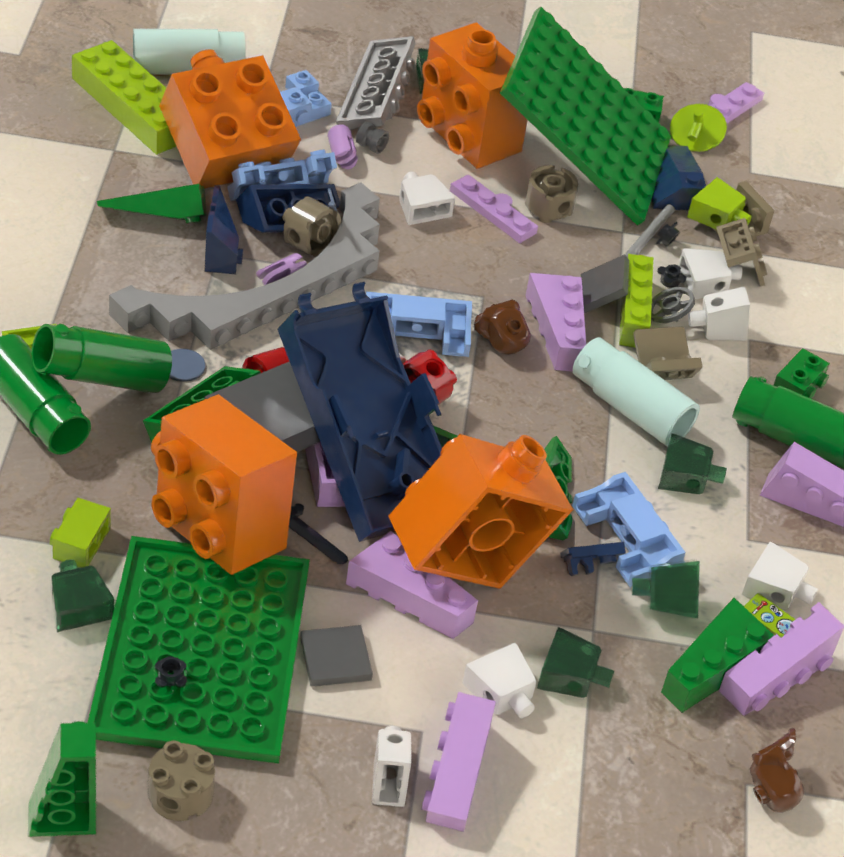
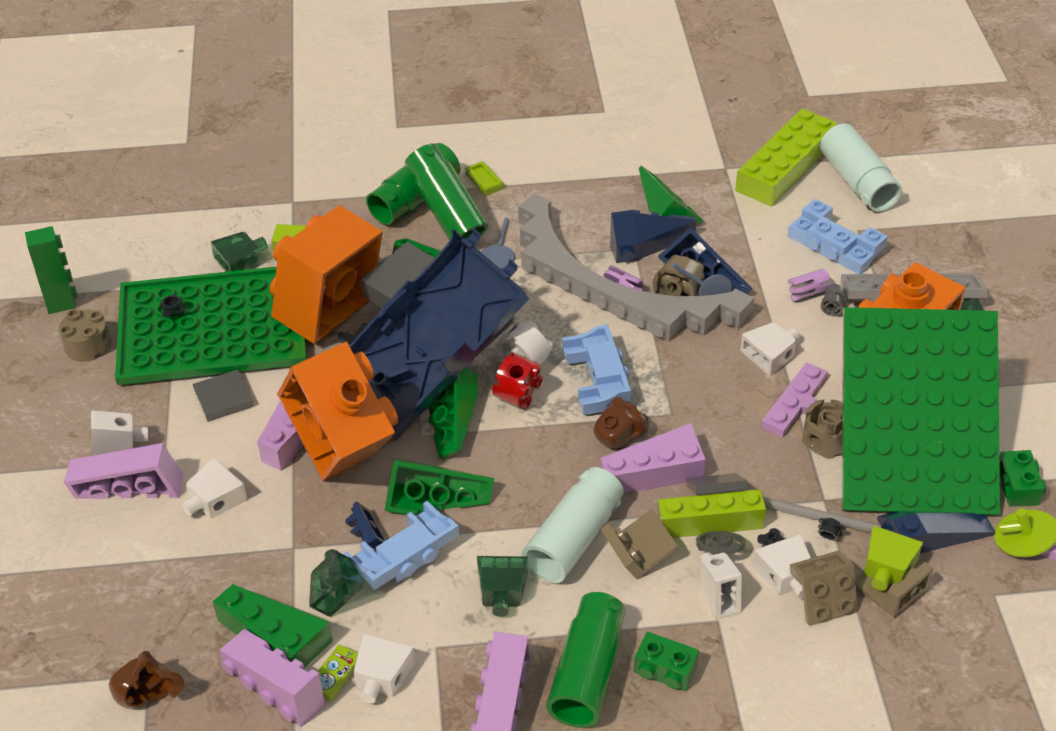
camera: 85 degrees right, 0 degrees up
(227, 117) = (760, 195): orange brick -> none
(307, 171) = (738, 256): light blue bracket -> none
(573, 666) = (240, 531): clear green torso -> none

